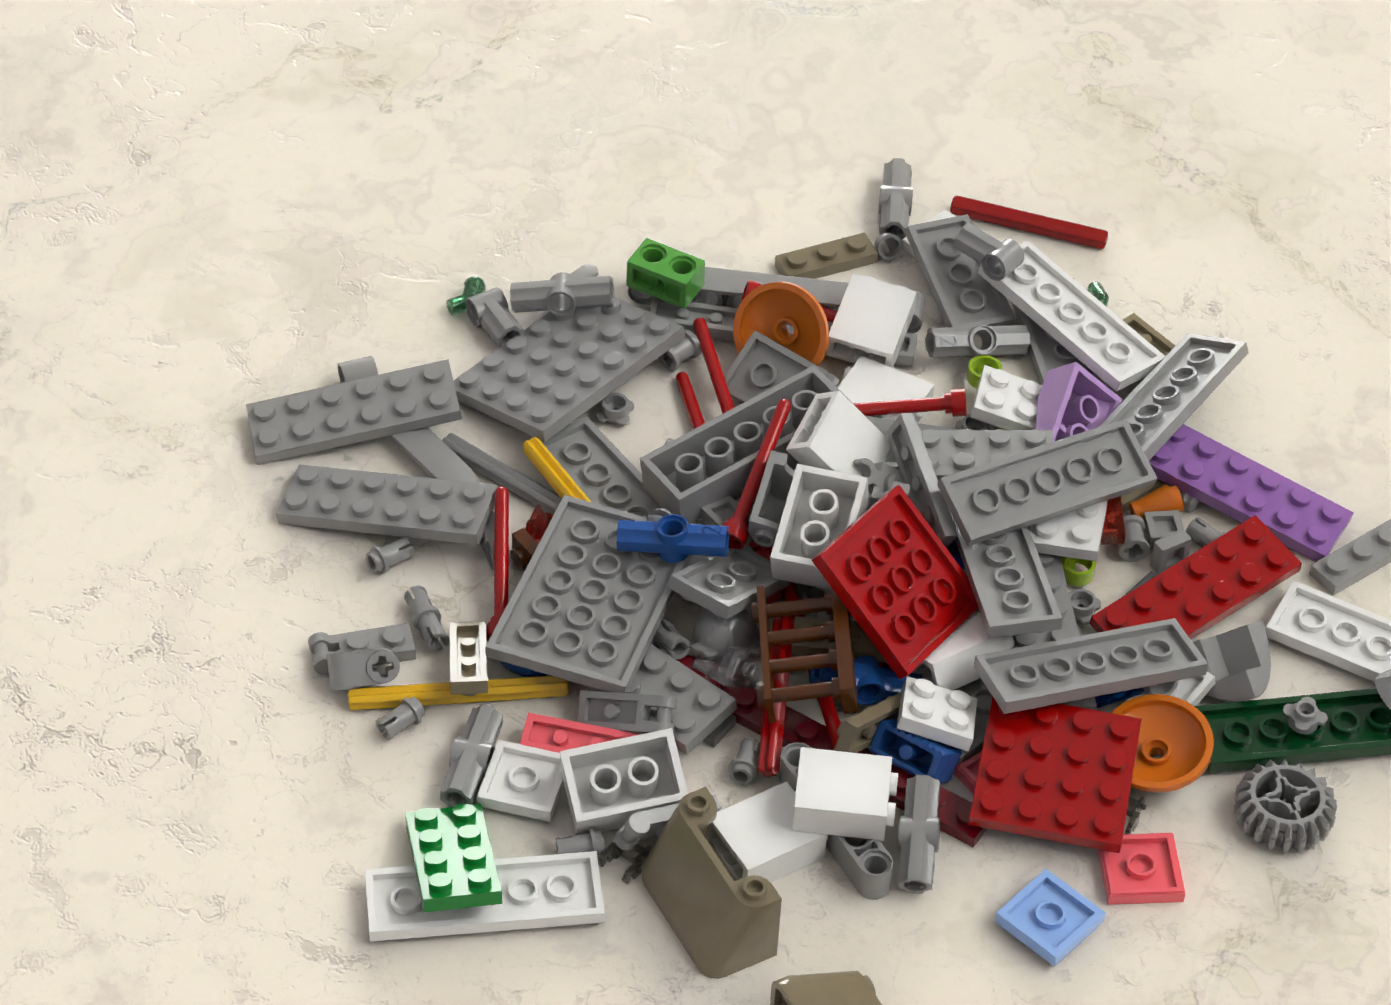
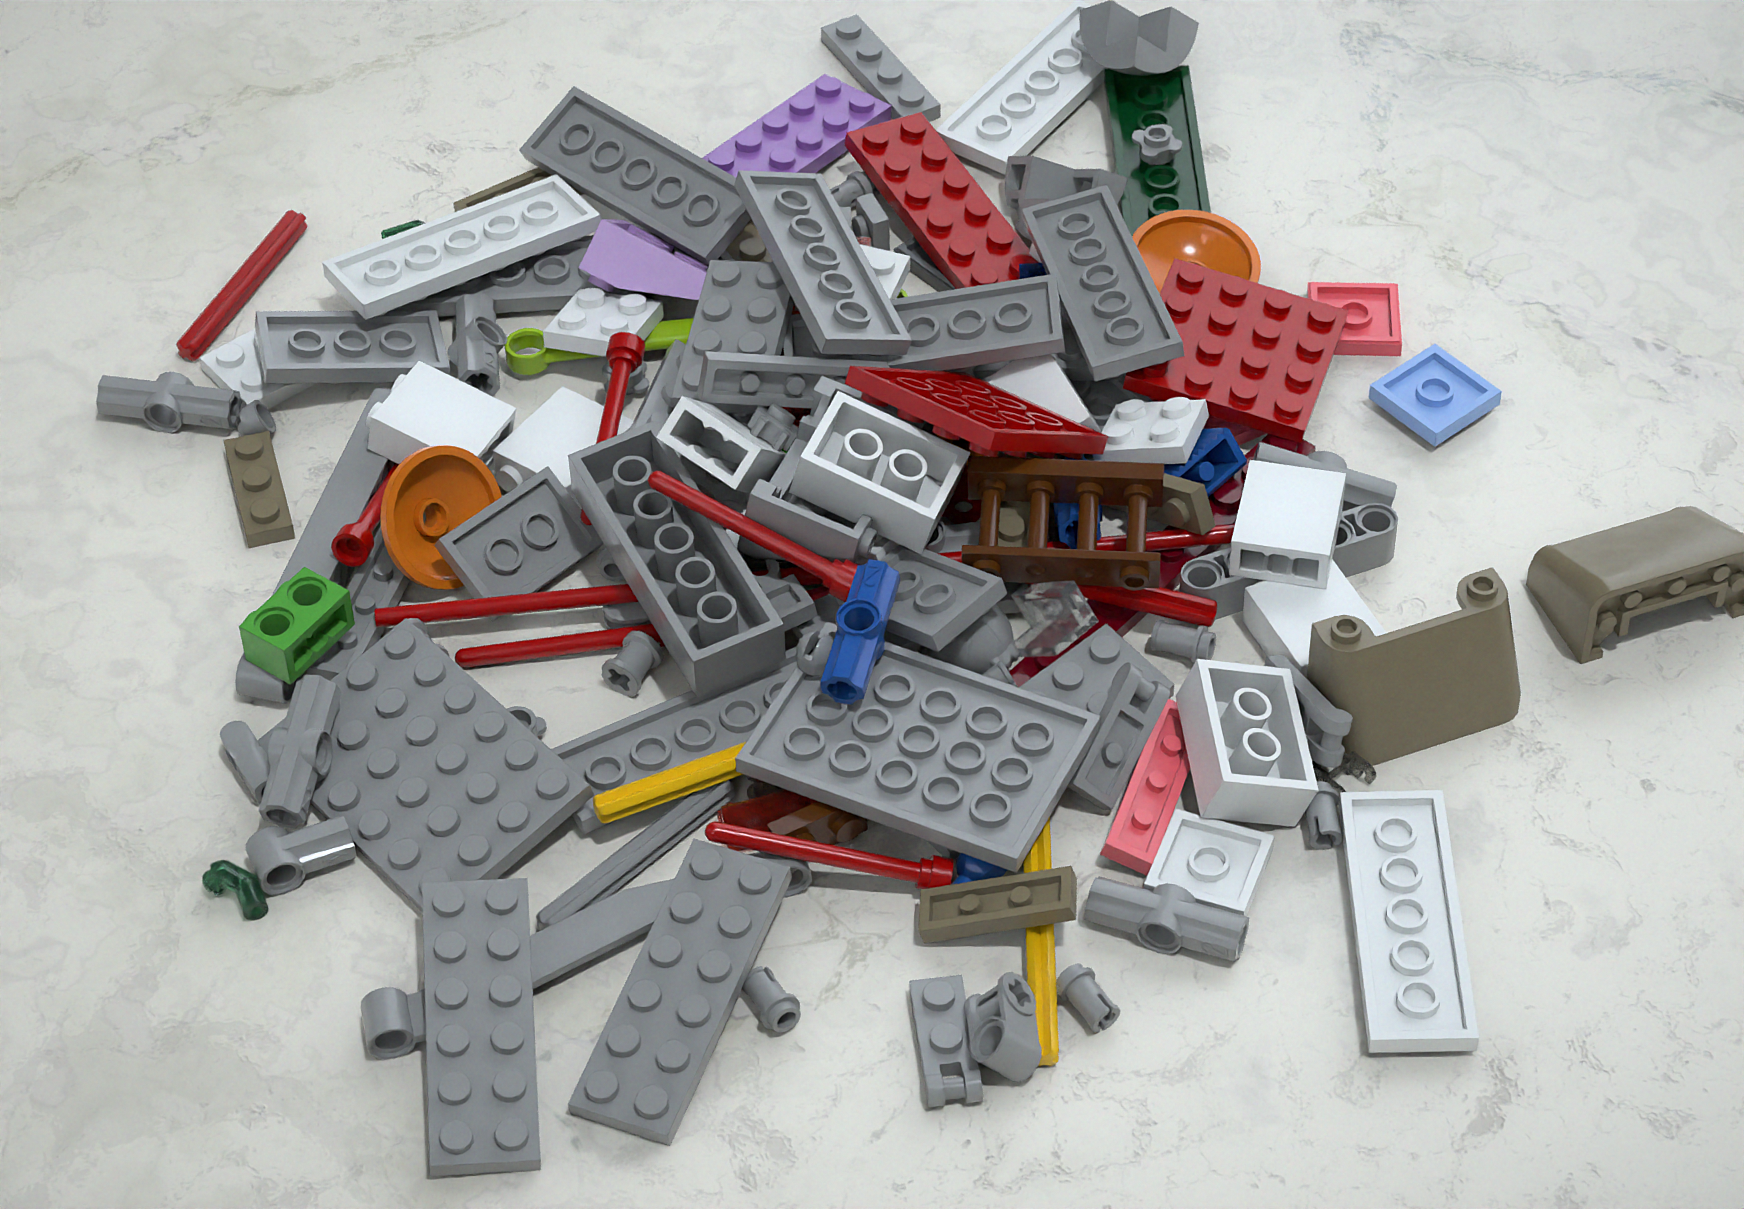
camera: 80 degrees left, 0 degrees up
(426, 618) = (901, 960): light grey pin -> none
(453, 858) = (1359, 935): plate -> none
(996, 257) = (367, 277): light grey piece -> none
(1281, 813) = (1275, 186): light grey gear -> none

